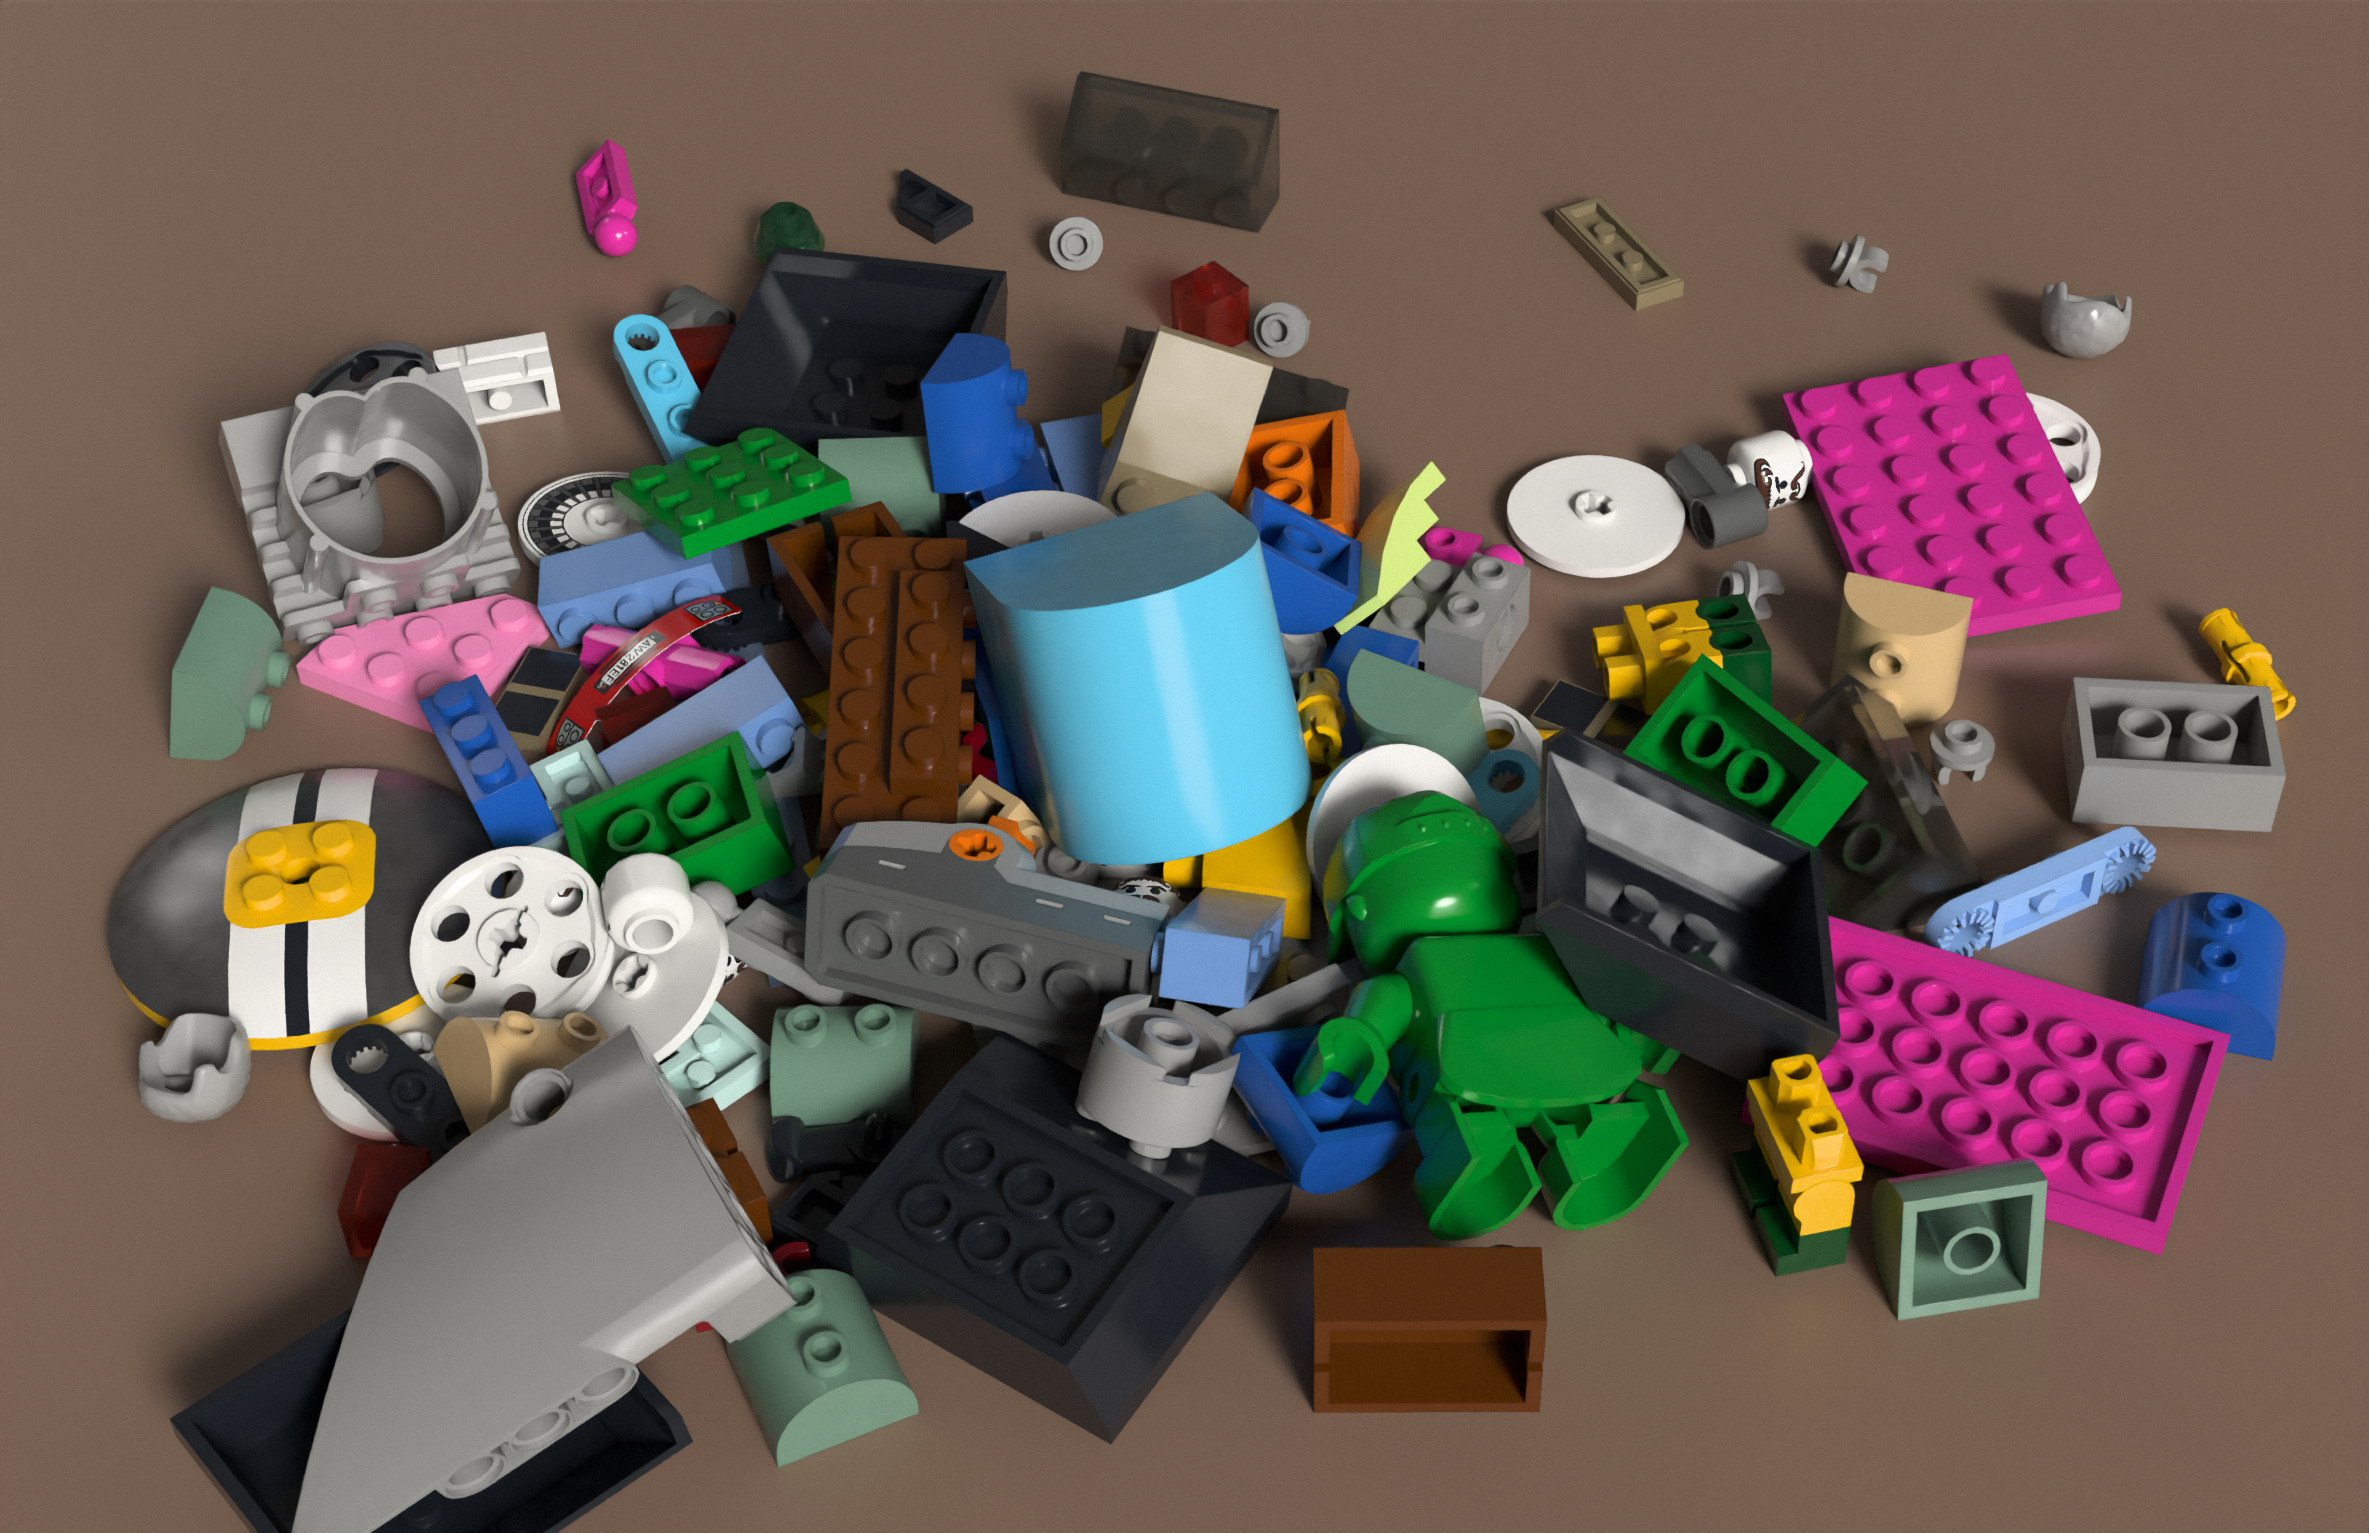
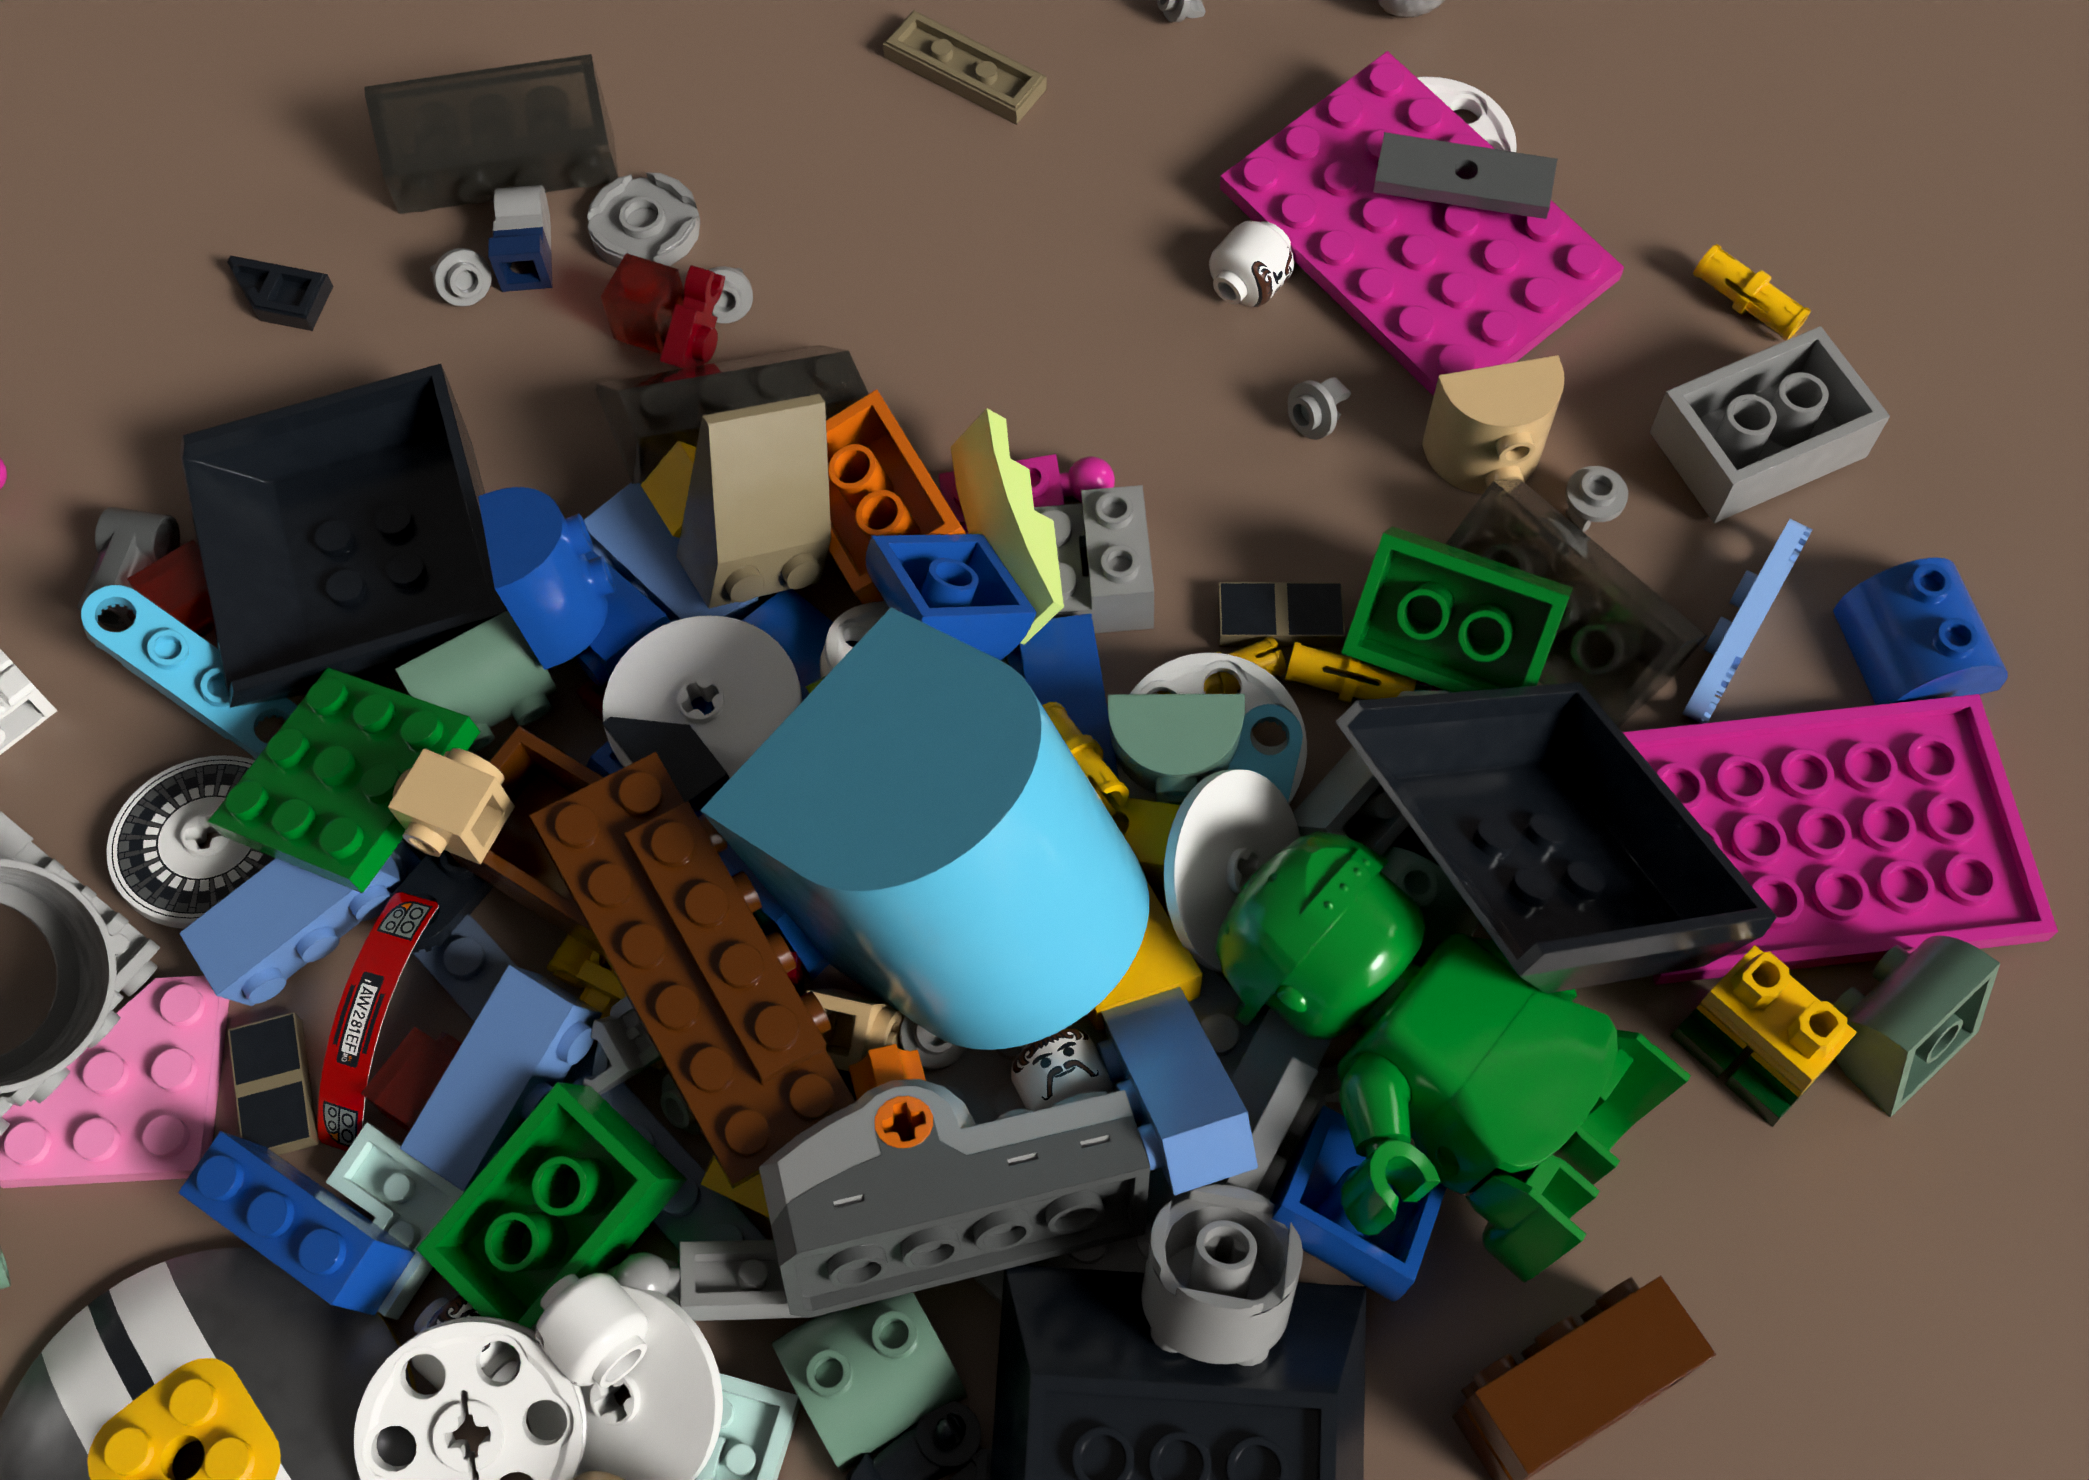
camera: 30 degrees left, 20 degrees up
(680, 667) = (421, 998): dark pink piece -> none
(786, 226) = (164, 395): clear green cone -> none
(790, 515) = (451, 804): none -> tan brick
(1149, 230) = (521, 234): none -> leg
(1240, 326) = (692, 327): none -> dark red plate
(1263, 260) = (643, 218): none -> light grey tile
(1595, 516) = (1154, 411): white piece -> none
(1660, 645) = (1318, 507): yellow hips -> none
(1717, 505) = (1236, 322): dark grey piece -> none
(2002, 458) = (1465, 175): none -> dark grey tile

